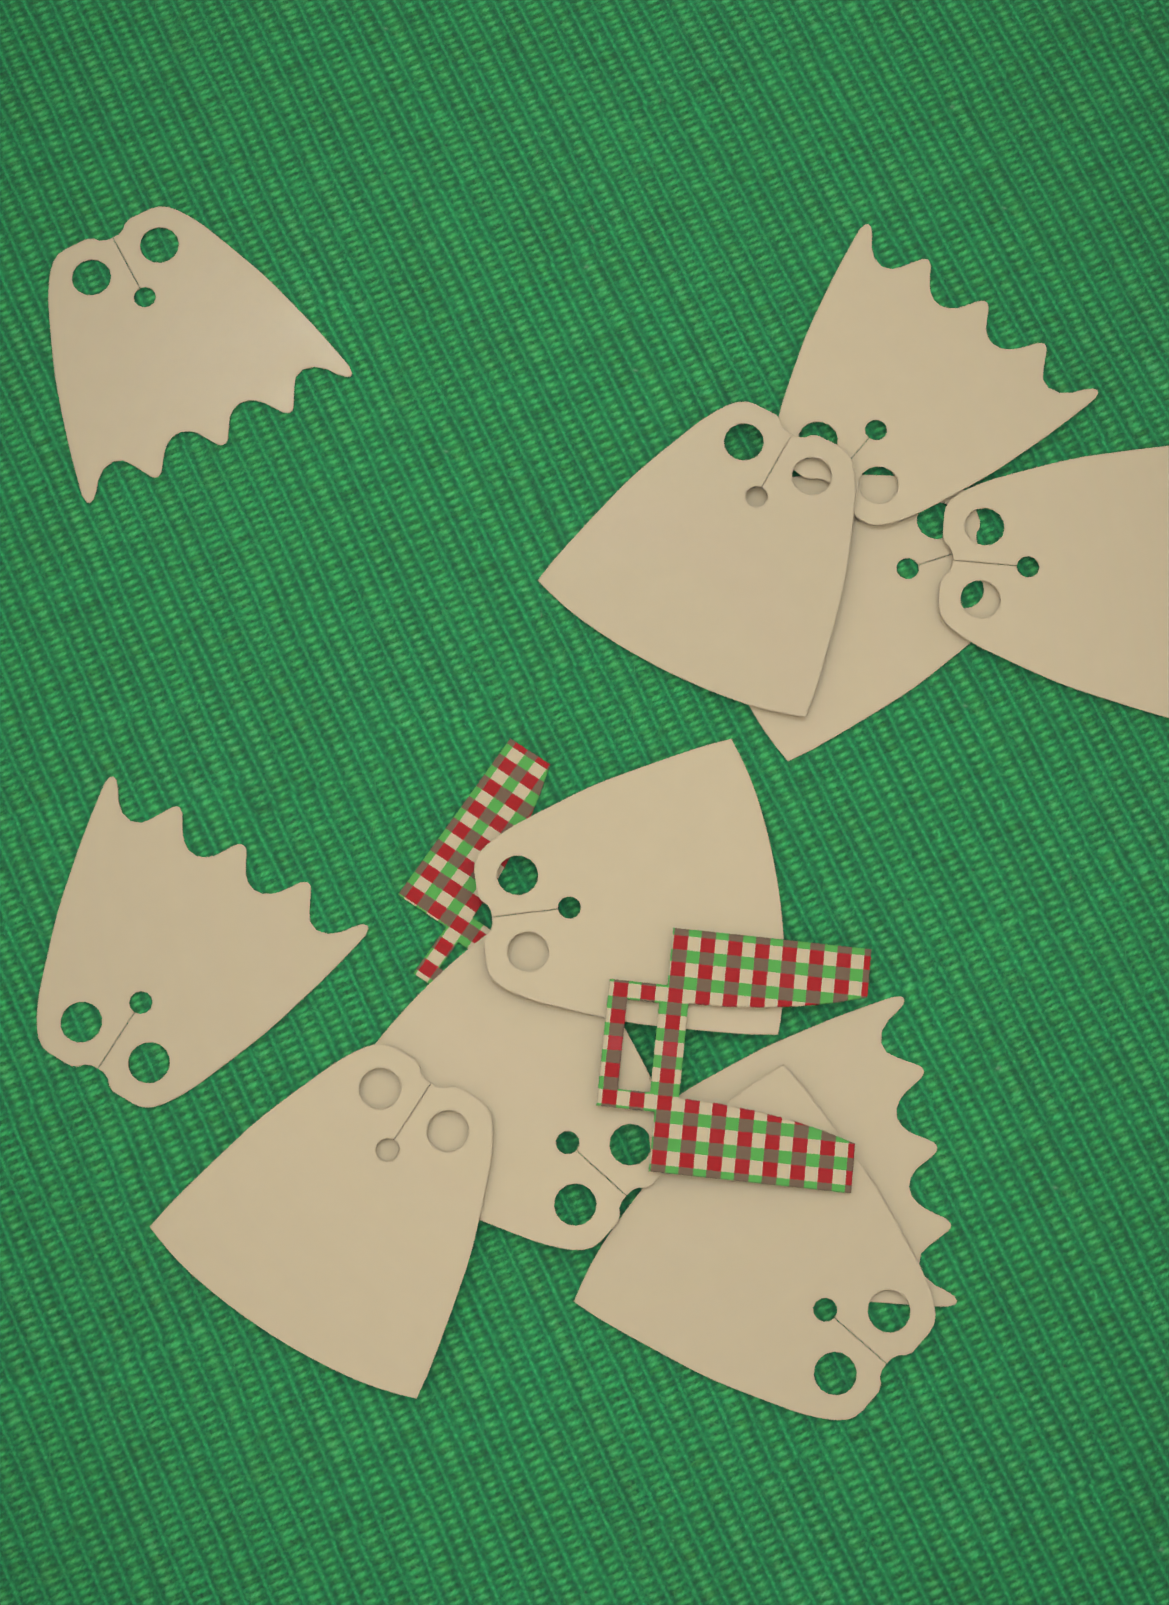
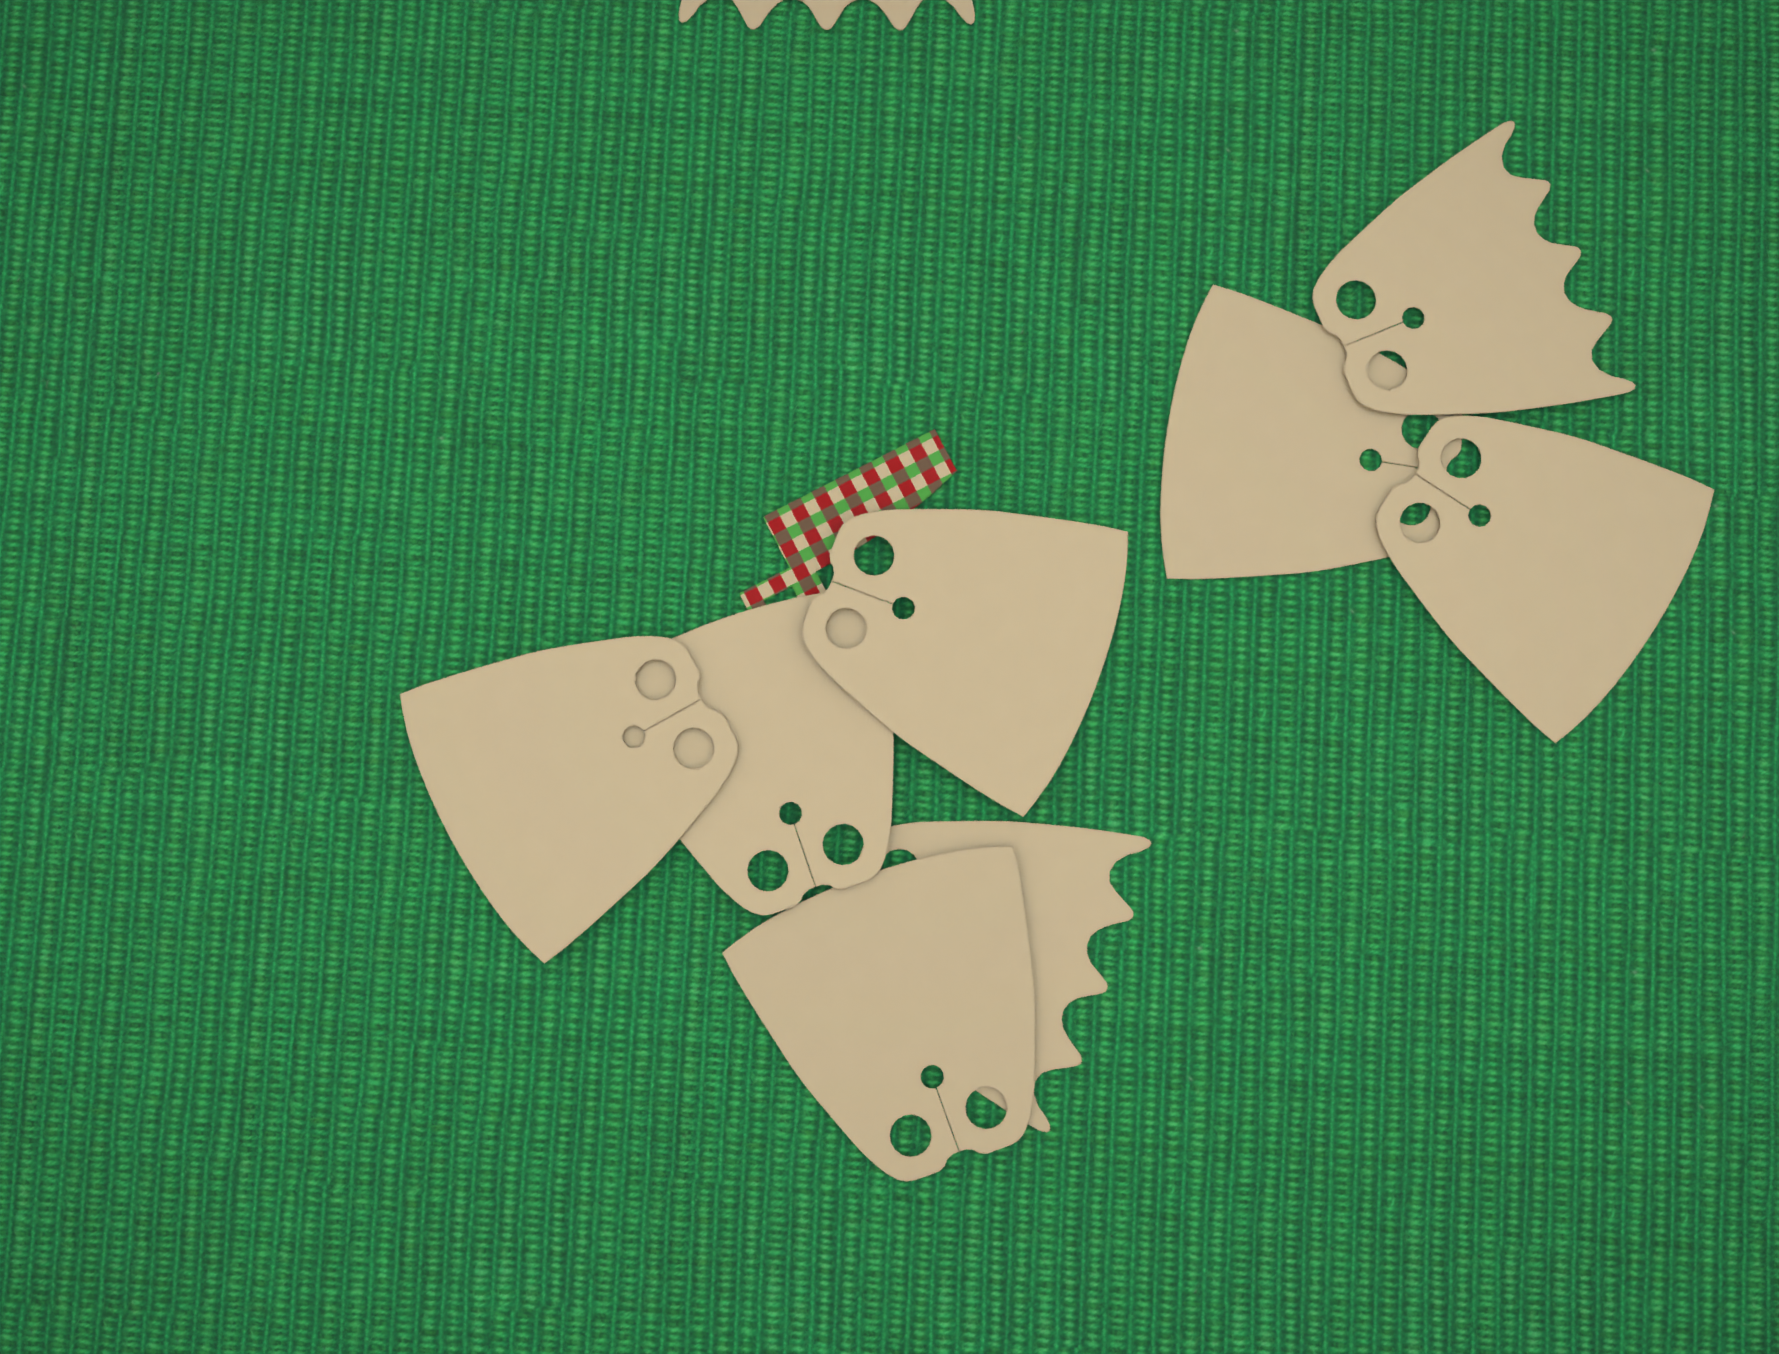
camera: 30 degrees right, 10 degrees up
(187, 934) = (562, 450): tan piece -> none
(706, 579) = (1189, 380): tan piece -> none
(715, 1137) = (918, 878): piece -> none

